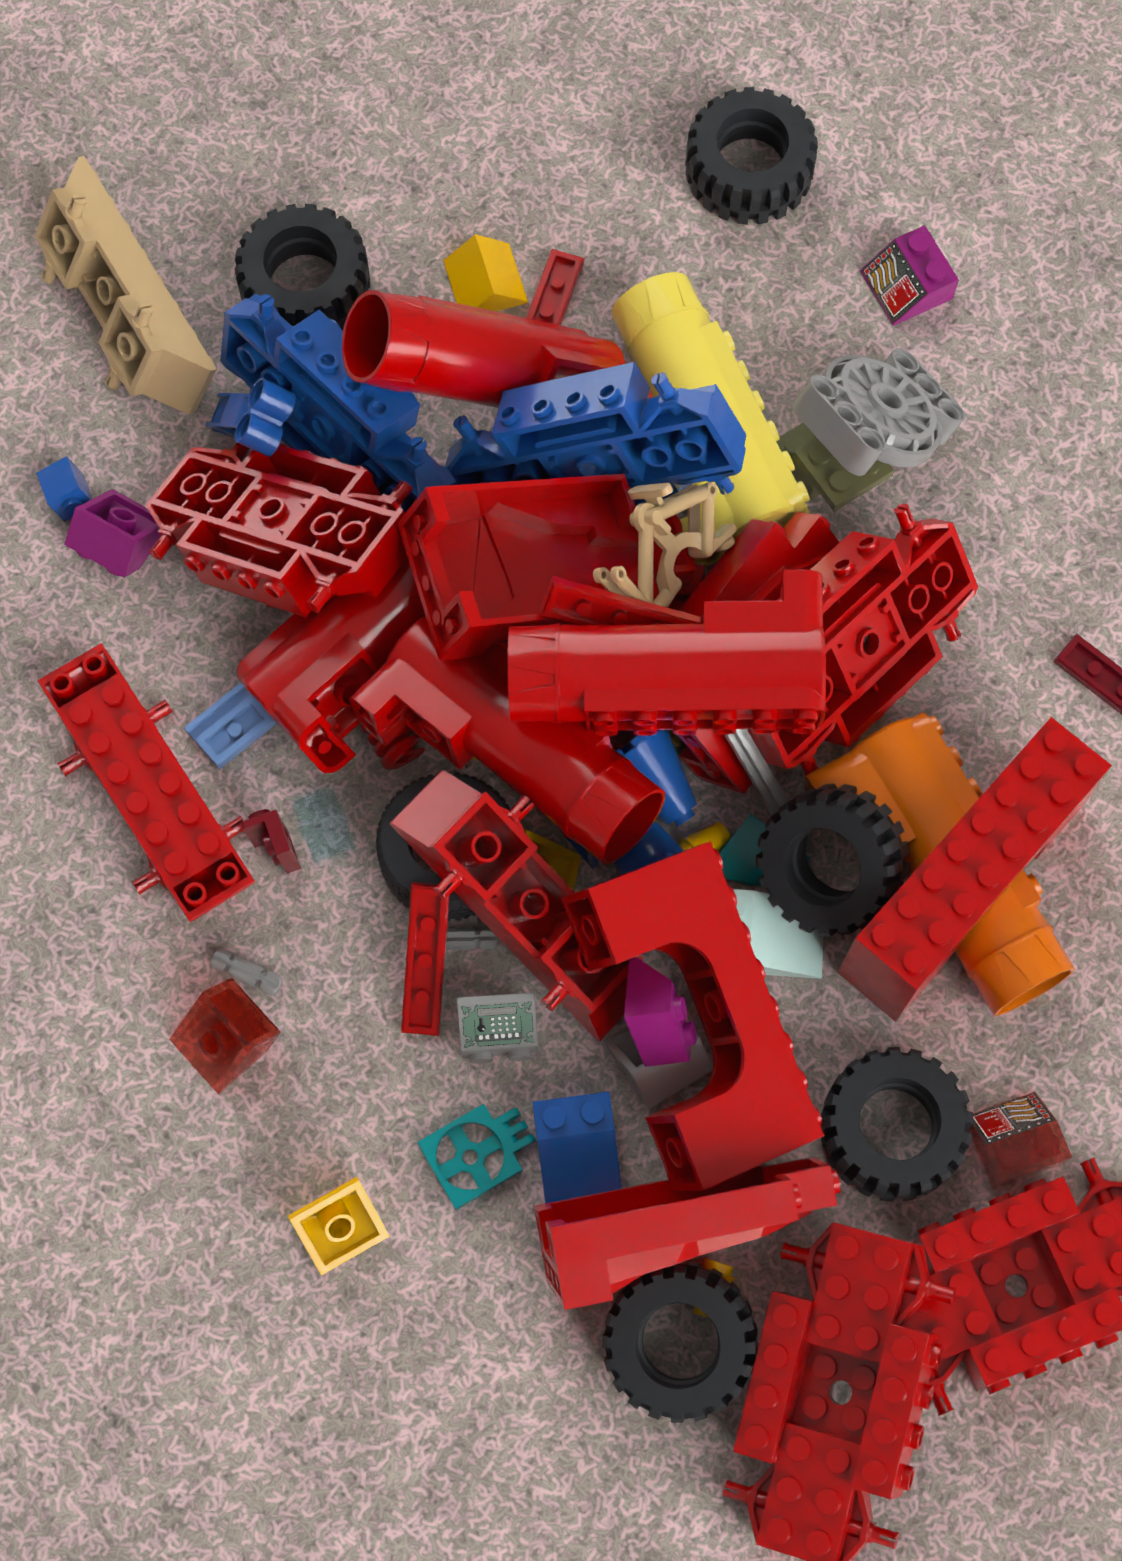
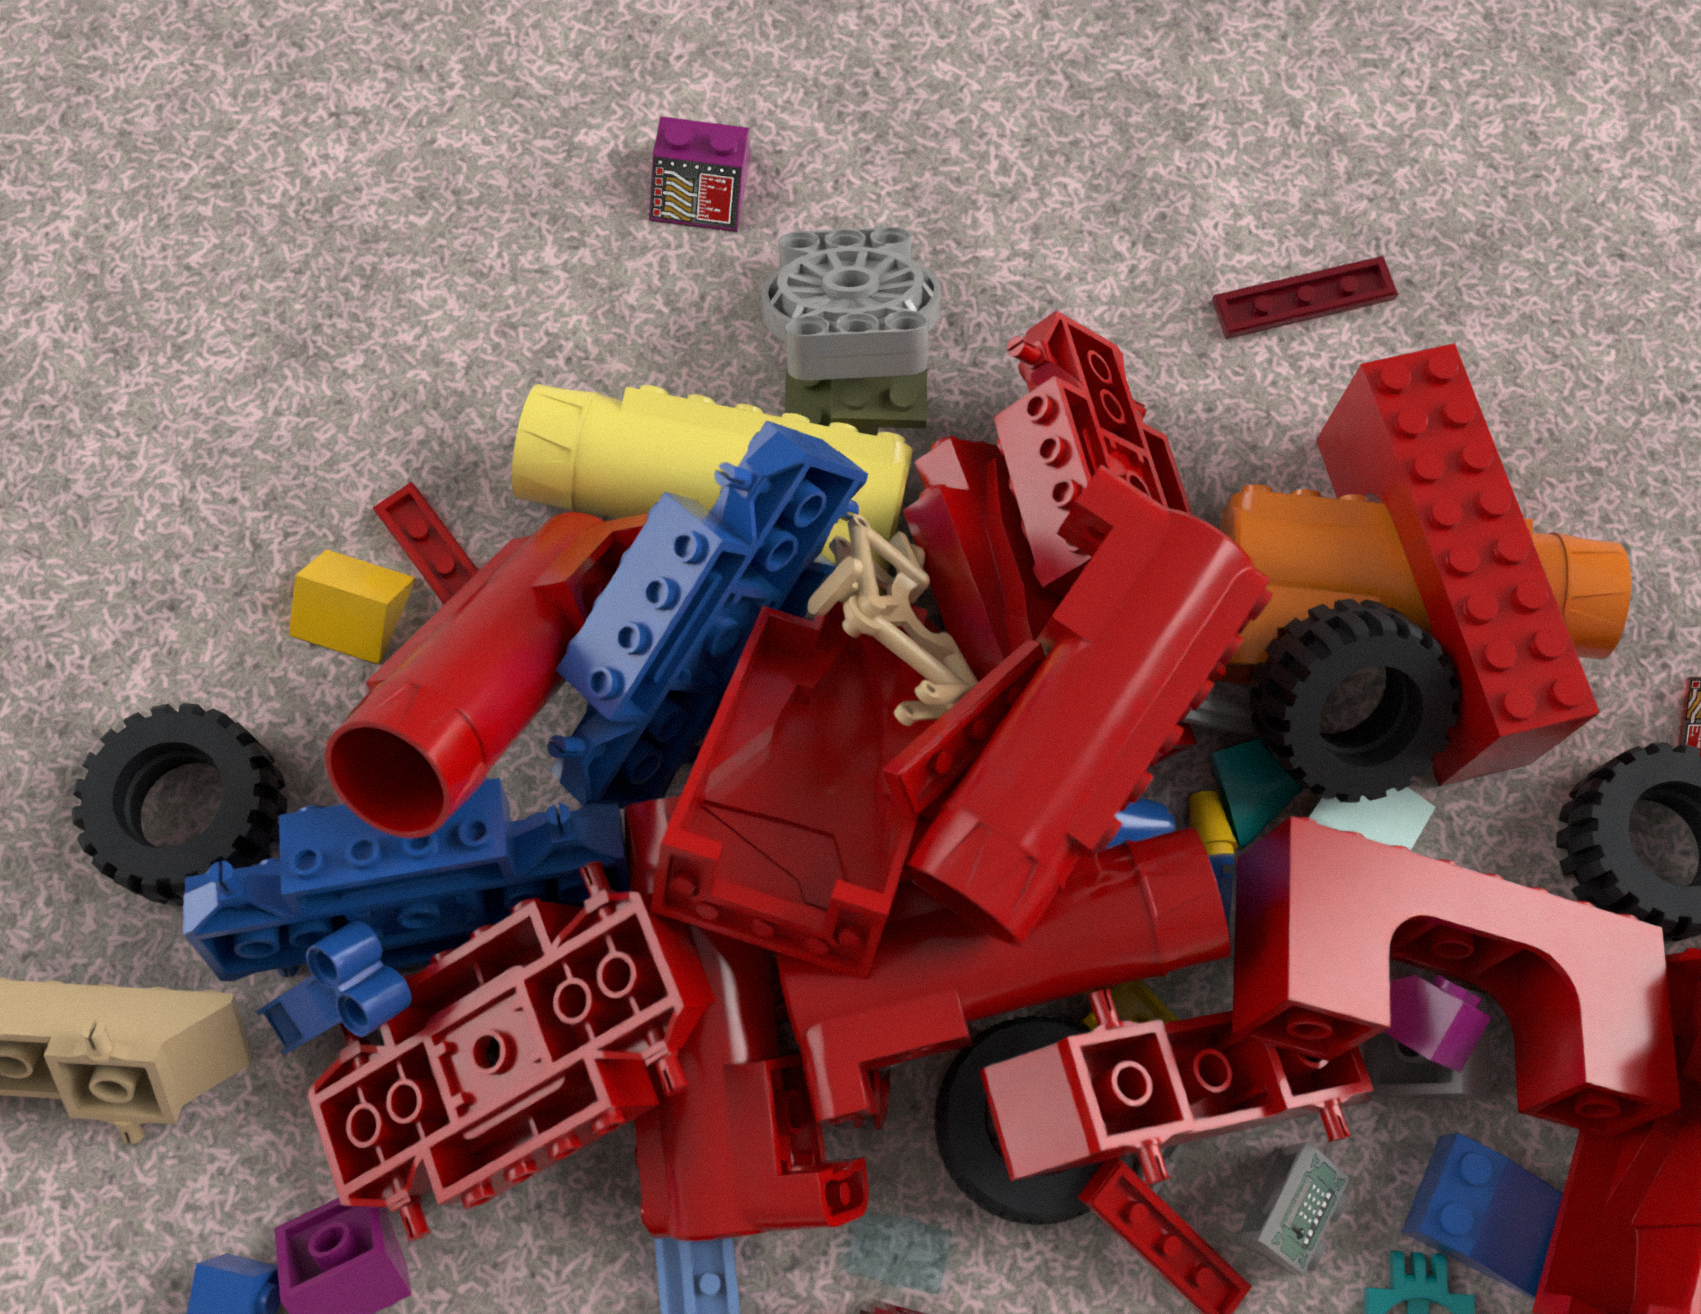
camera: 60 degrees left, 0 degrees up
(742, 192) = (424, 177): black tyre -> none

